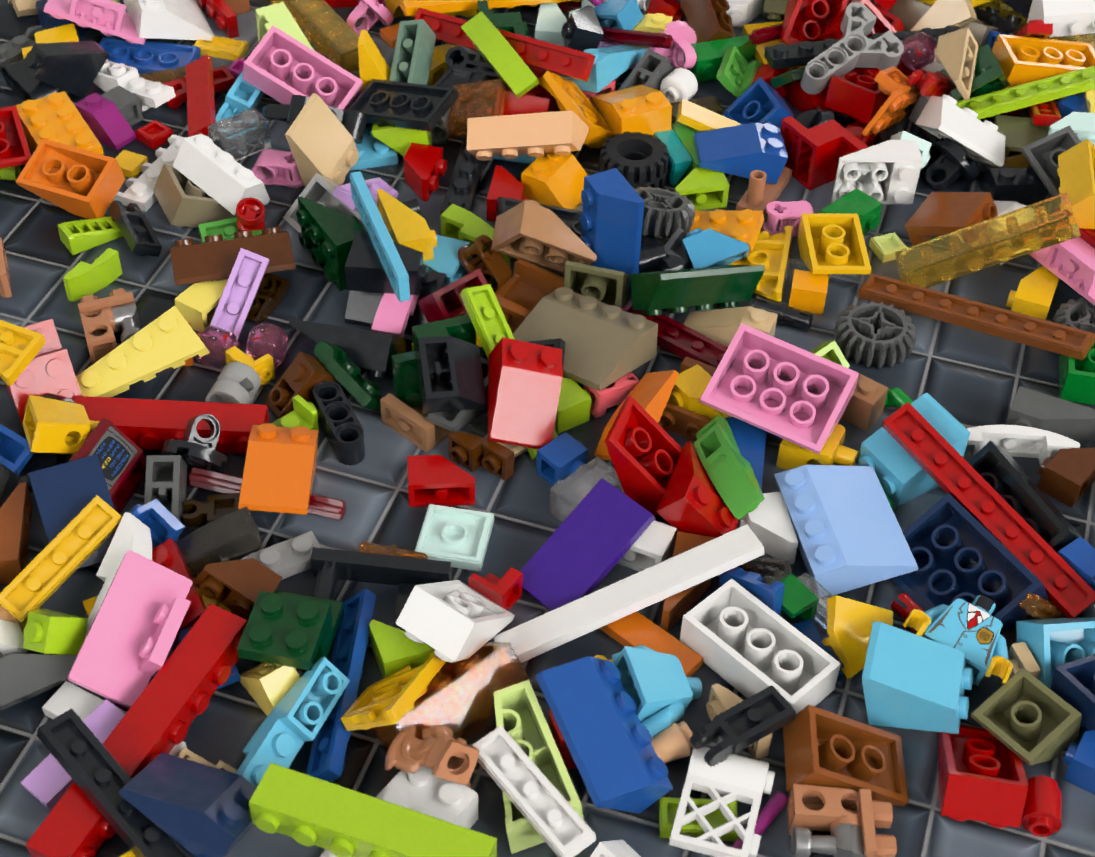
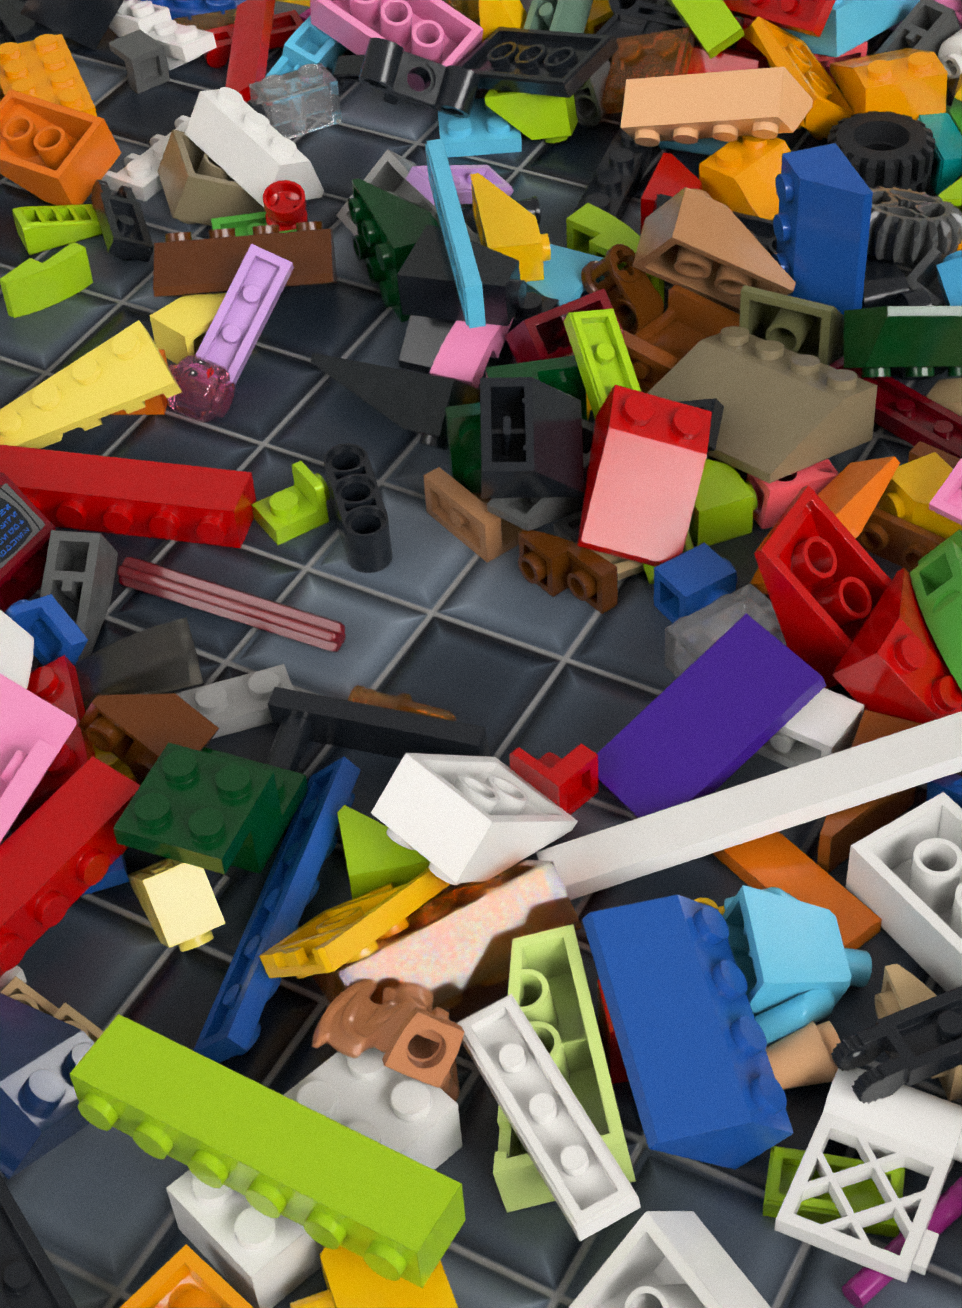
camera: 15 degrees right, 0 degrees up
(104, 318) = (49, 337): nougat hips -> none
(105, 121) = (112, 77): magenta slope -> none
(131, 163) = (134, 135): yellow tile -> none
(153, 134) = (176, 98): red tile -> none
(198, 450) = (133, 531): black tile -> none
(207, 512) = (124, 622): dark brown plate -> none
(235, 384) = (213, 441): light grey wheel -> none
(263, 366) = (240, 426): yellow bracket -> none
(267, 339) = (272, 390): clear pink head -> none
(268, 297) = (289, 323): dark brown slope -> none
(277, 168) = (344, 148): bright pink piece -> none
(279, 469) = (249, 567): orange slope -> none
(293, 720) = (190, 950): medium azure slope -> none
(298, 379) = (307, 440): reddish brown slope -> none
(321, 143) = (401, 104): tan slope -> none
(348, 375) = (383, 437): dark green hinge -> none
(423, 169) = (557, 156): red slope -> none
(438, 482) = (491, 606): red slope -> none
(455, 536) = (508, 691): light aqua tile -> none

